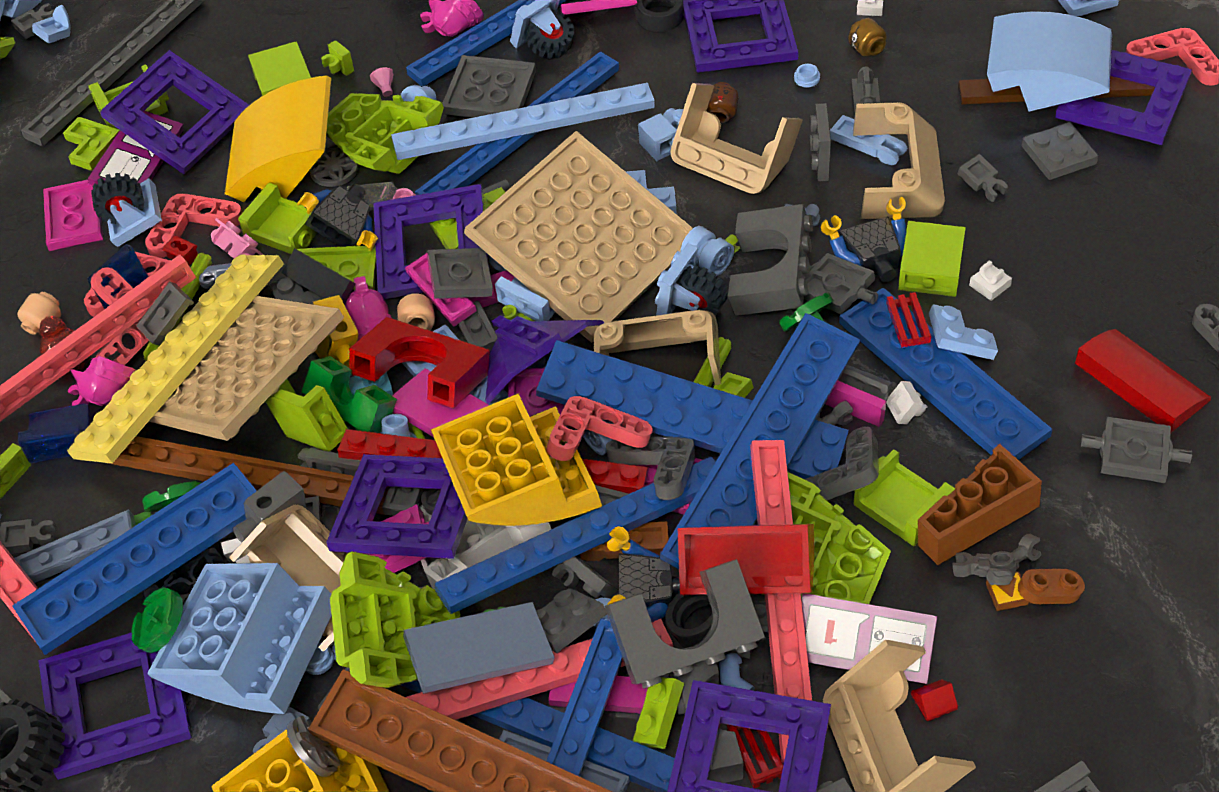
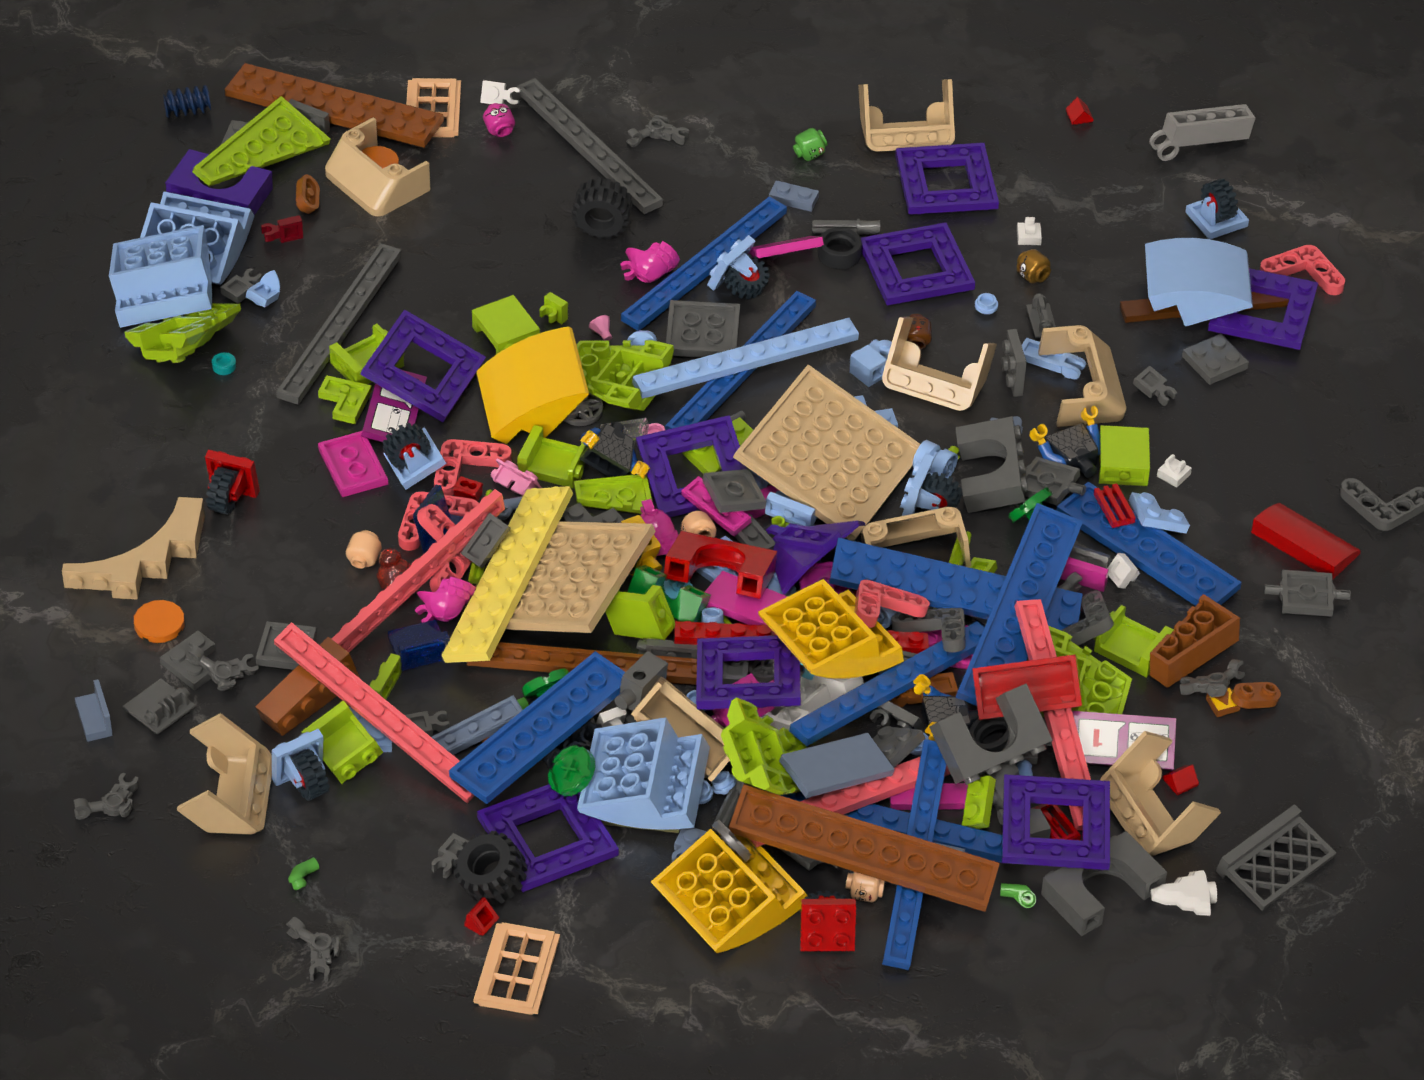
camera: 15 degrees left, 5 degrees down
(317, 276) = (606, 502): black tile -> none

